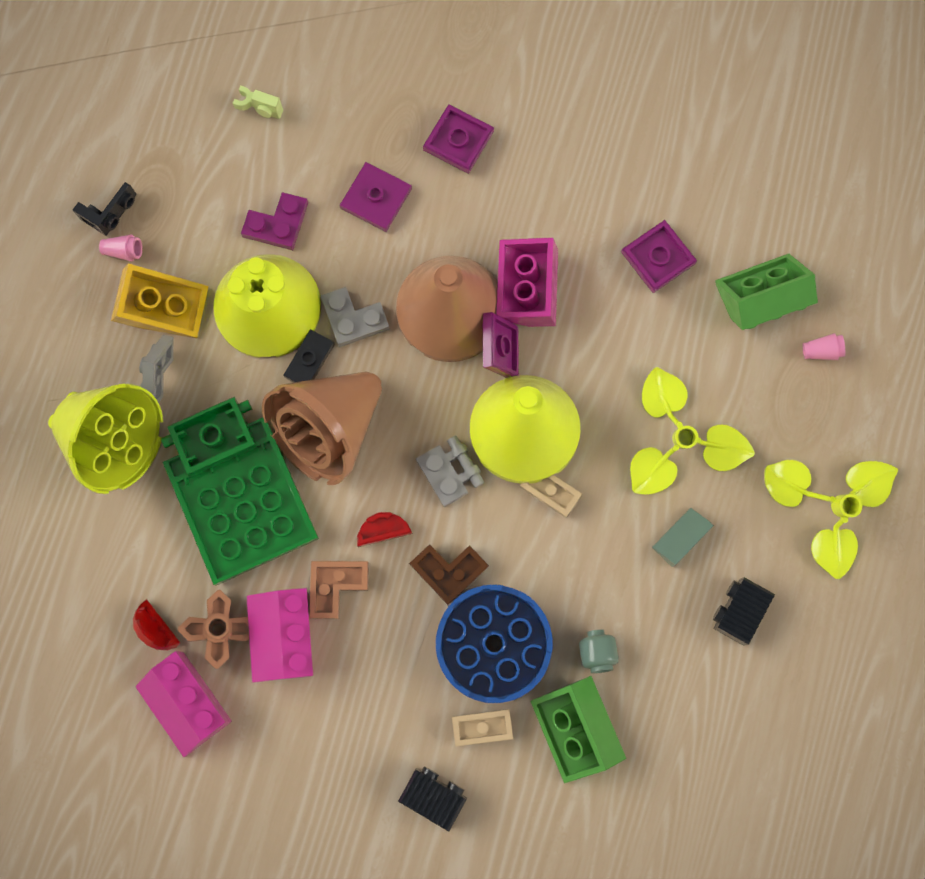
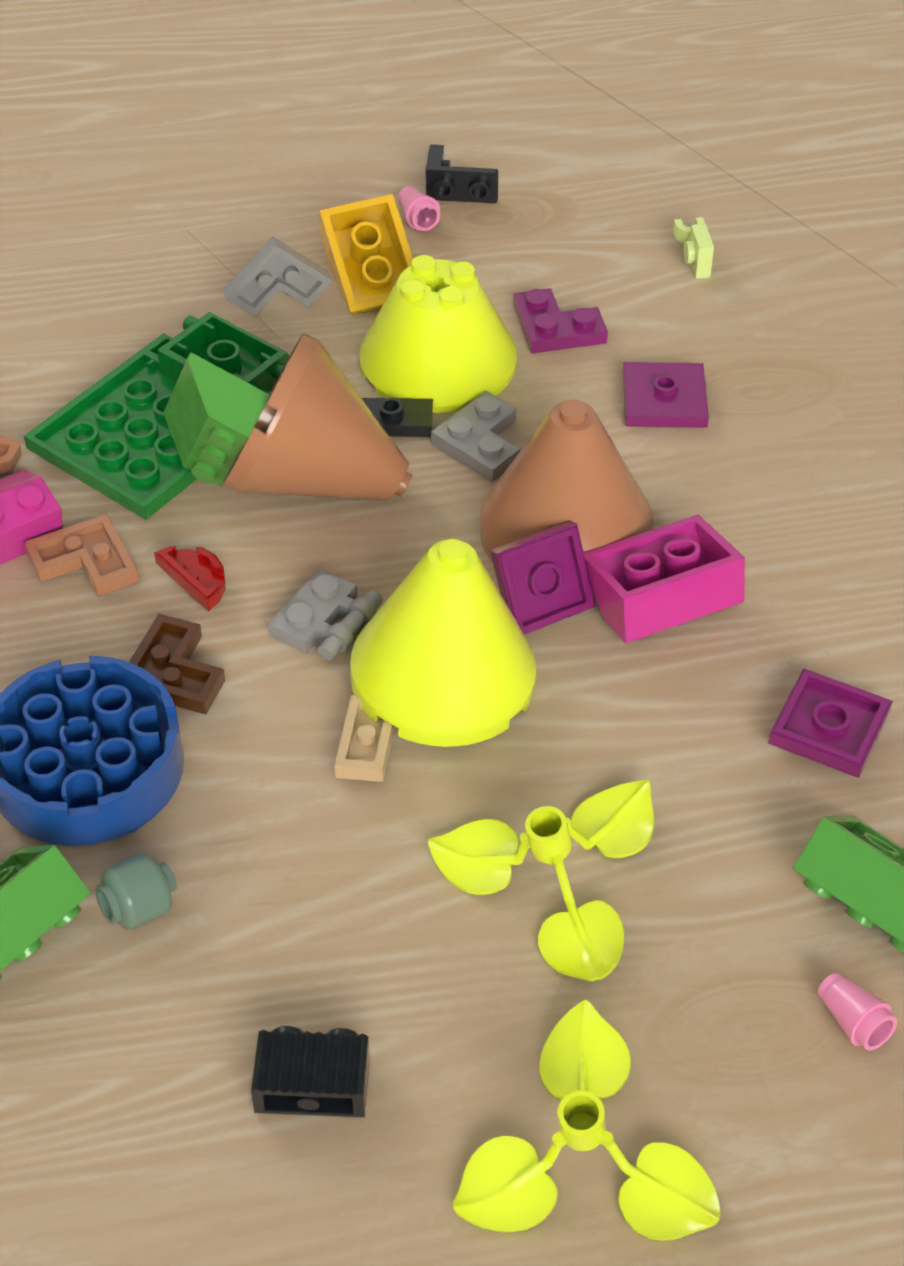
camera: 60 degrees right, 30 degrees down
(108, 435) = (159, 255): neon yellow cone -> none
(306, 473) = (211, 418): none -> bright green slope
(458, 138) = (814, 437): magenta plate -> none
(682, 537) = (392, 943): sand green slope -> none

